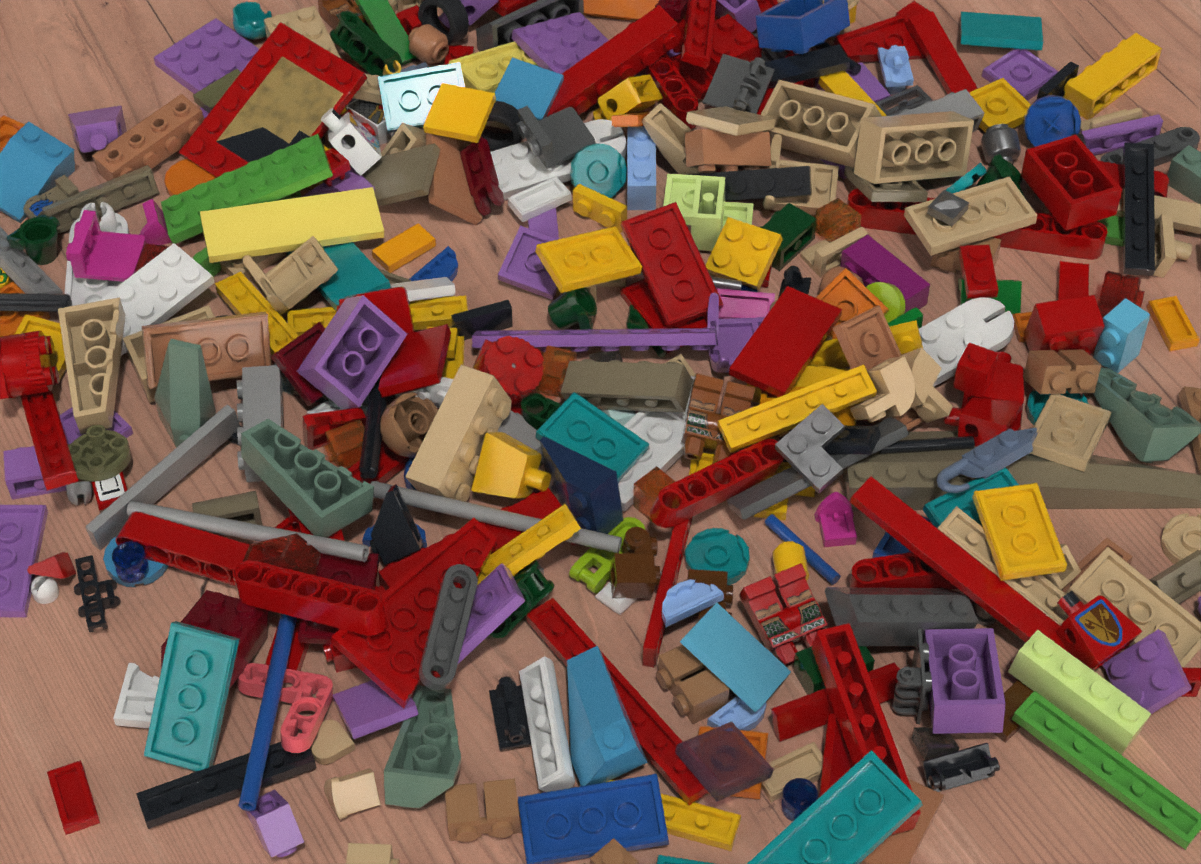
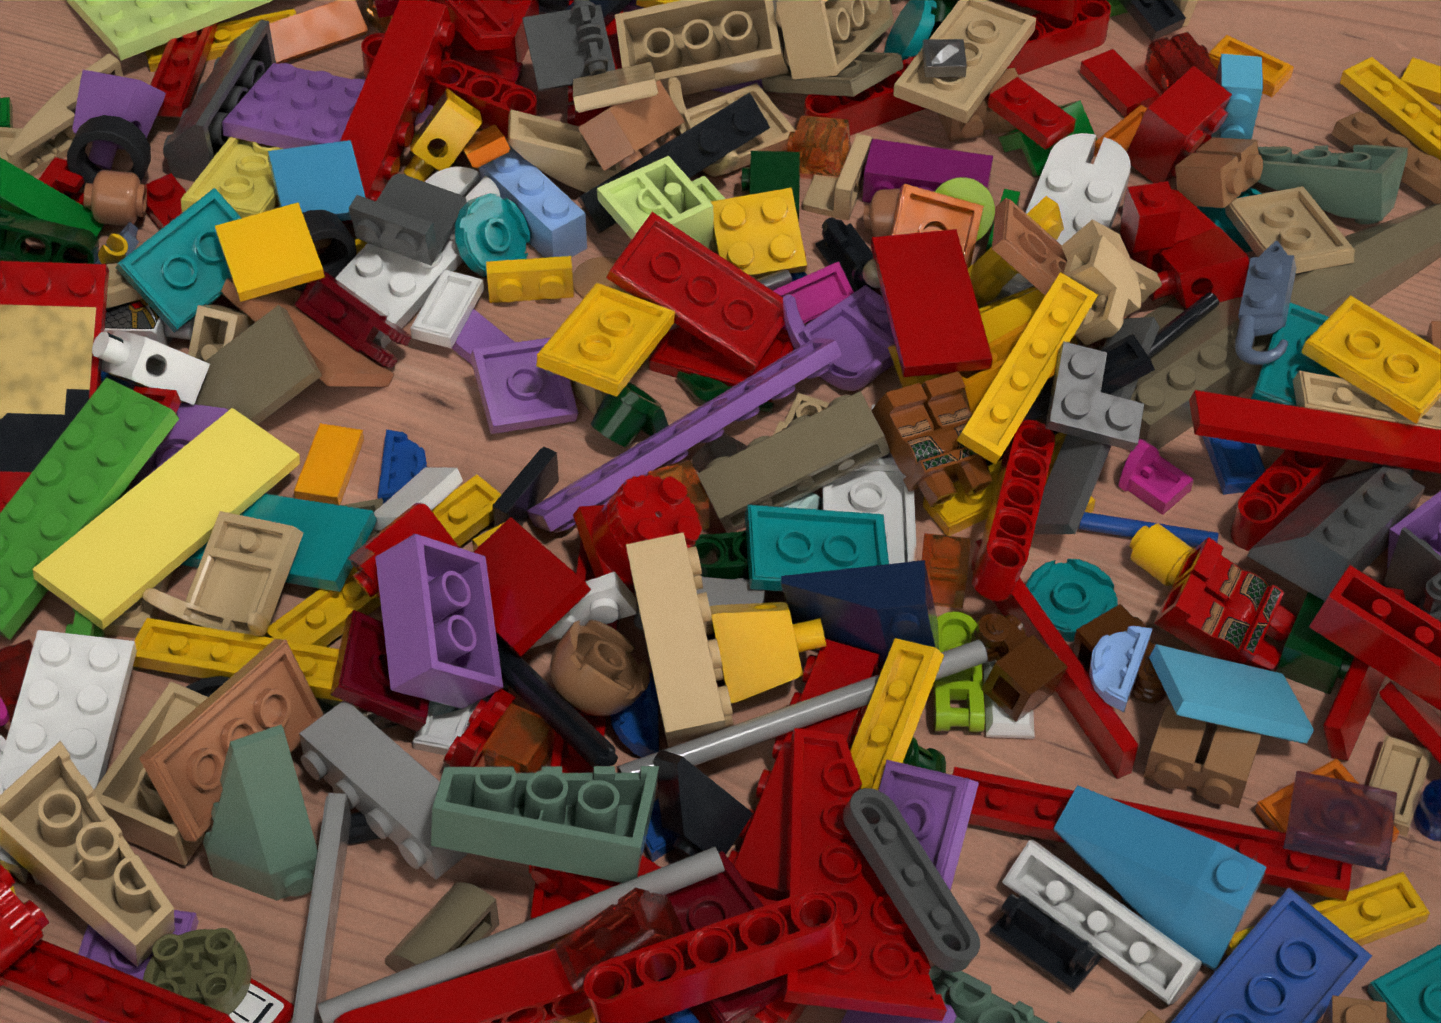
camera: 40 degrees left, 0 degrees up
(739, 714) = (1277, 764): light blue tile -> none

